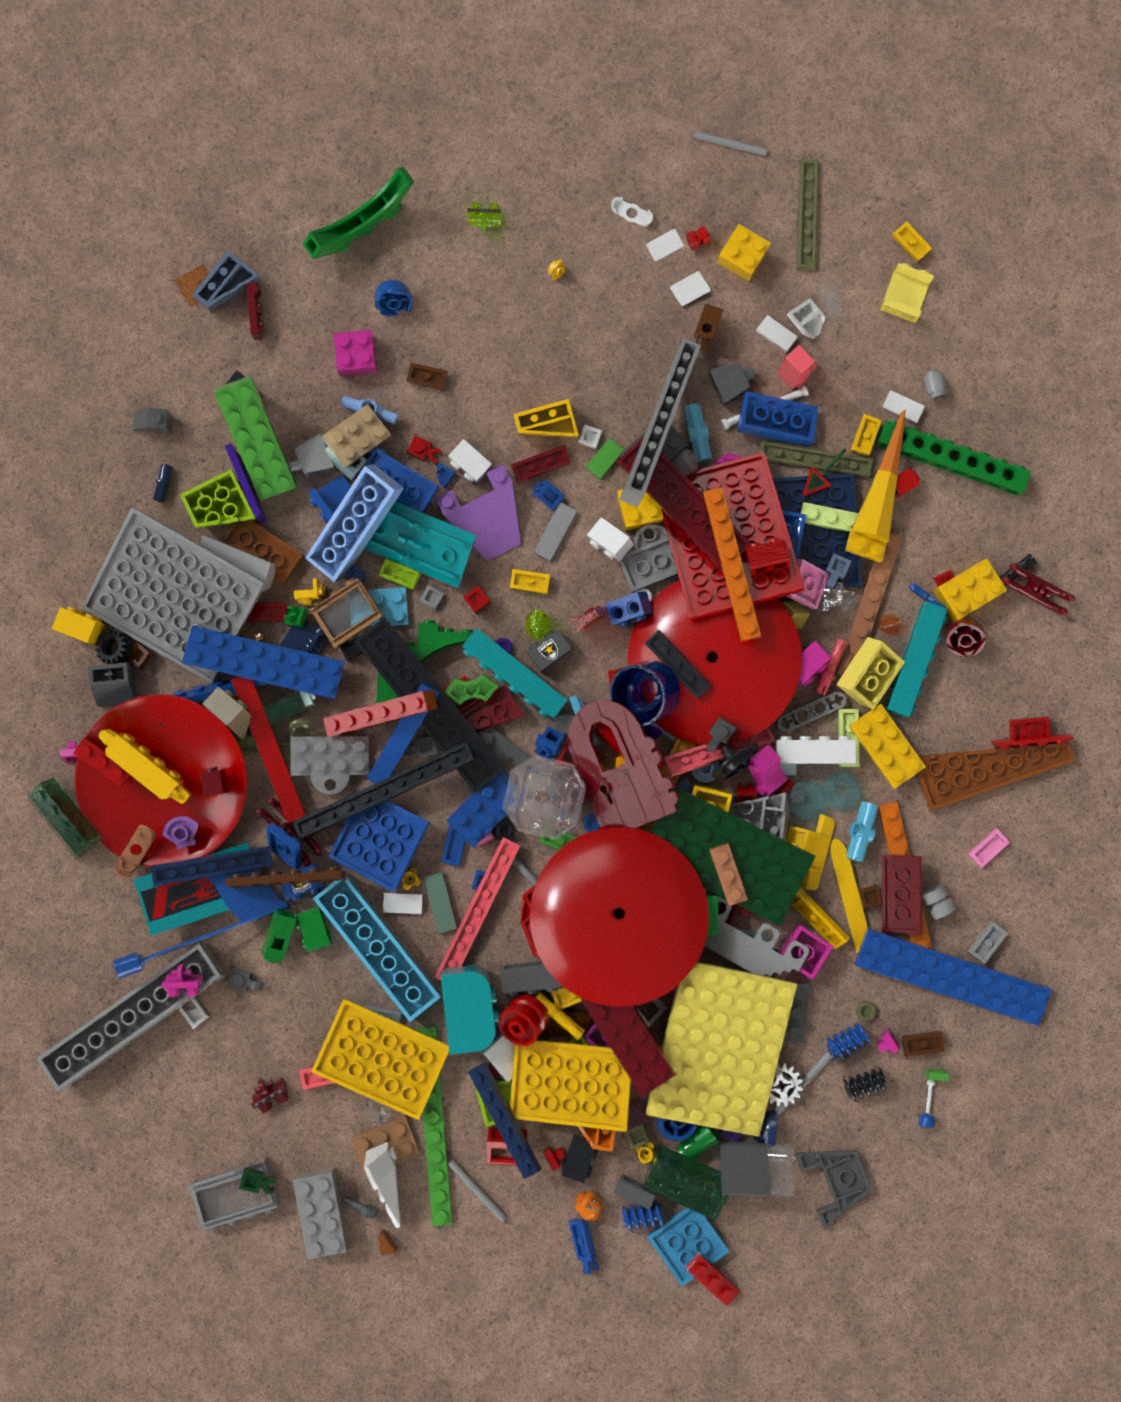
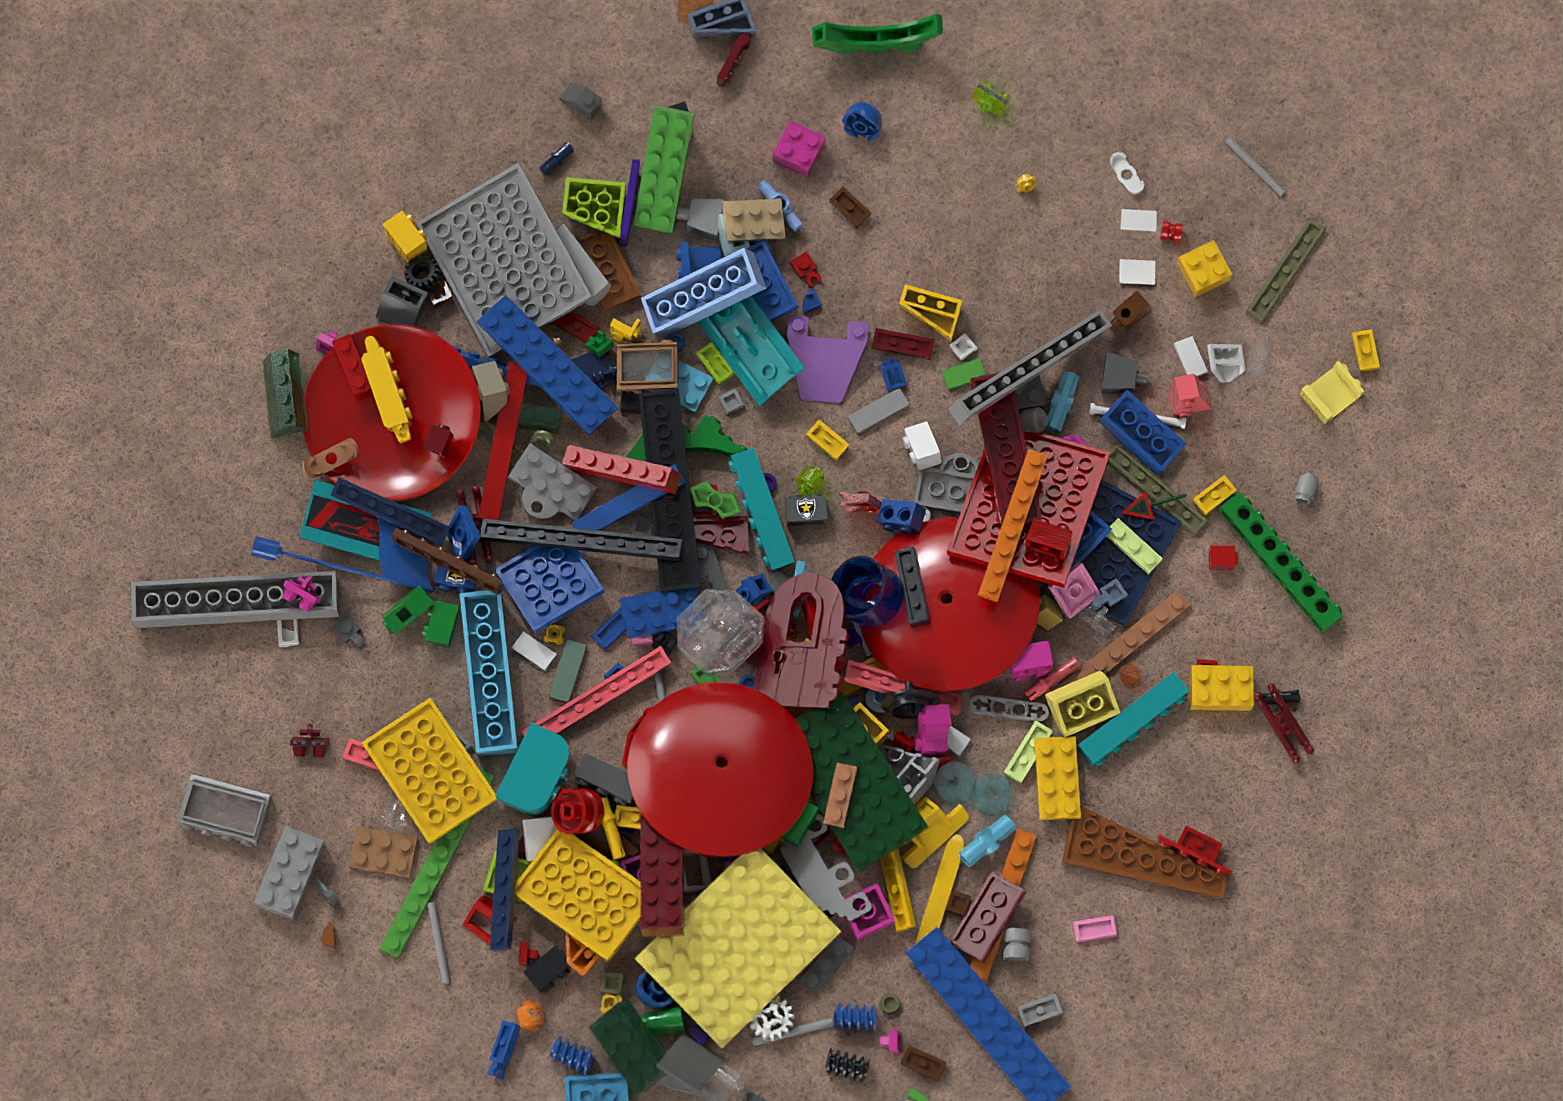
camera: 30 degrees right, 10 degrees down
(181, 831) = (381, 466): medium lavender animal -> none
(253, 1180) = (252, 804): dark green plate -> none
(308, 699) = (565, 421): light aqua plate -> none
(382, 1173) = (370, 866): white wedge -> none
(470, 462) = (840, 303): white brick -> none
(477, 600) = (769, 427): red panel -> none
(634, 1192) = (579, 1028): dark grey slope -> none
(636, 517) = (964, 438): yellow brick -> none
(636, 1116) = (621, 963): clear pink plate -> none
(721, 732) = (913, 669): dark grey plate -> none
(768, 1129) = (733, 1050): dark blue brick -> none
(816, 751) = (989, 742): white brick -> none
(873, 523) = (1168, 574): yellow plate -> none
(897, 403) = (1265, 491): white tile -> none
(924, 595) = (1178, 668): blue piece -> none
(965, 637) = (1189, 725): dark red cylinder -> none

